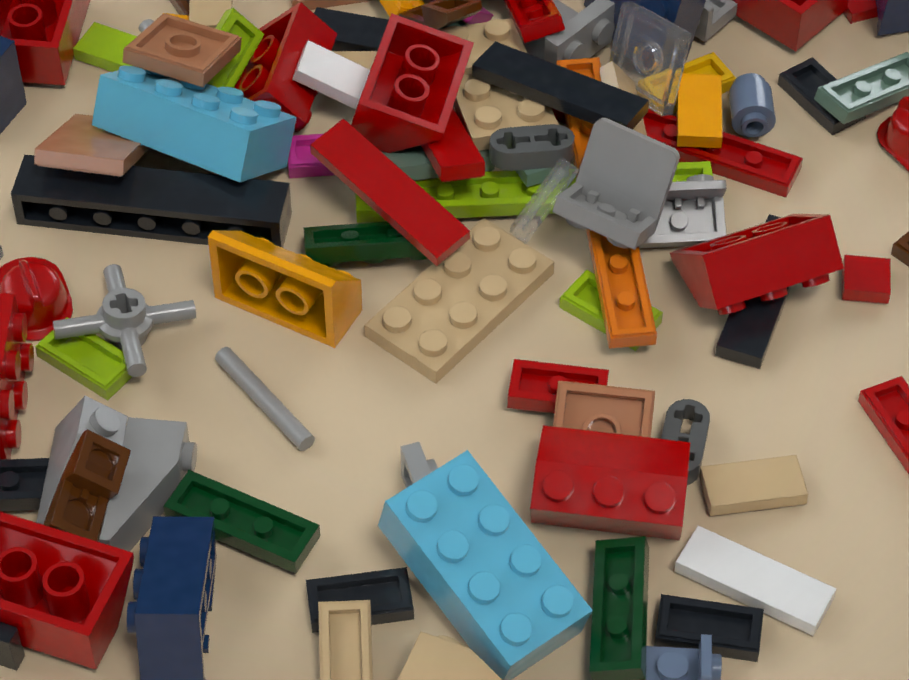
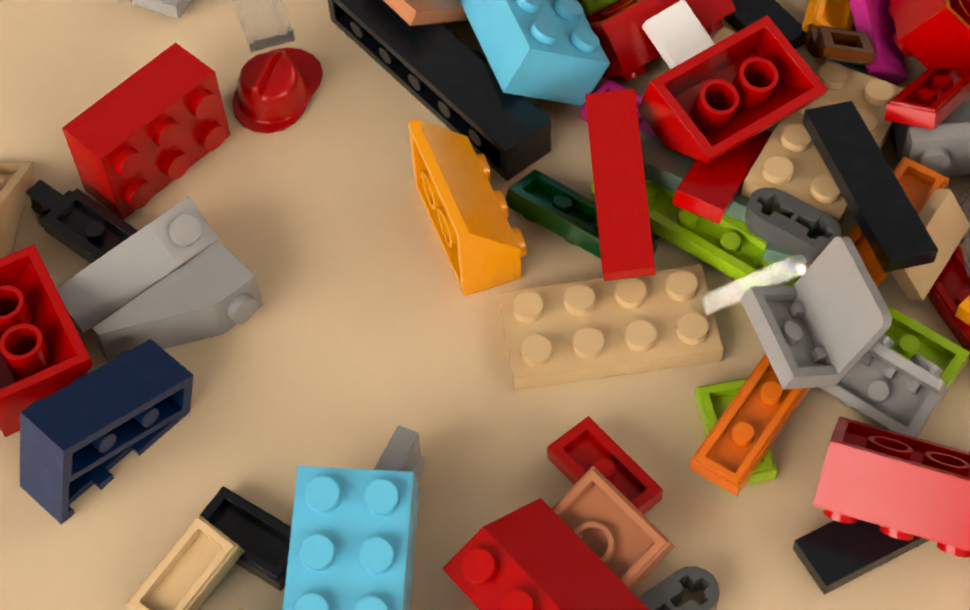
camera: 45 degrees right, 5 degrees up
(87, 361) = (263, 169): lime tile -> none
(87, 485) = (116, 278): reddish brown slope -> none
(124, 320) = (313, 154): light grey bar -> none
(245, 521) = (228, 397): dark green plate -> none
(265, 399) = (358, 302): light grey bar -> none

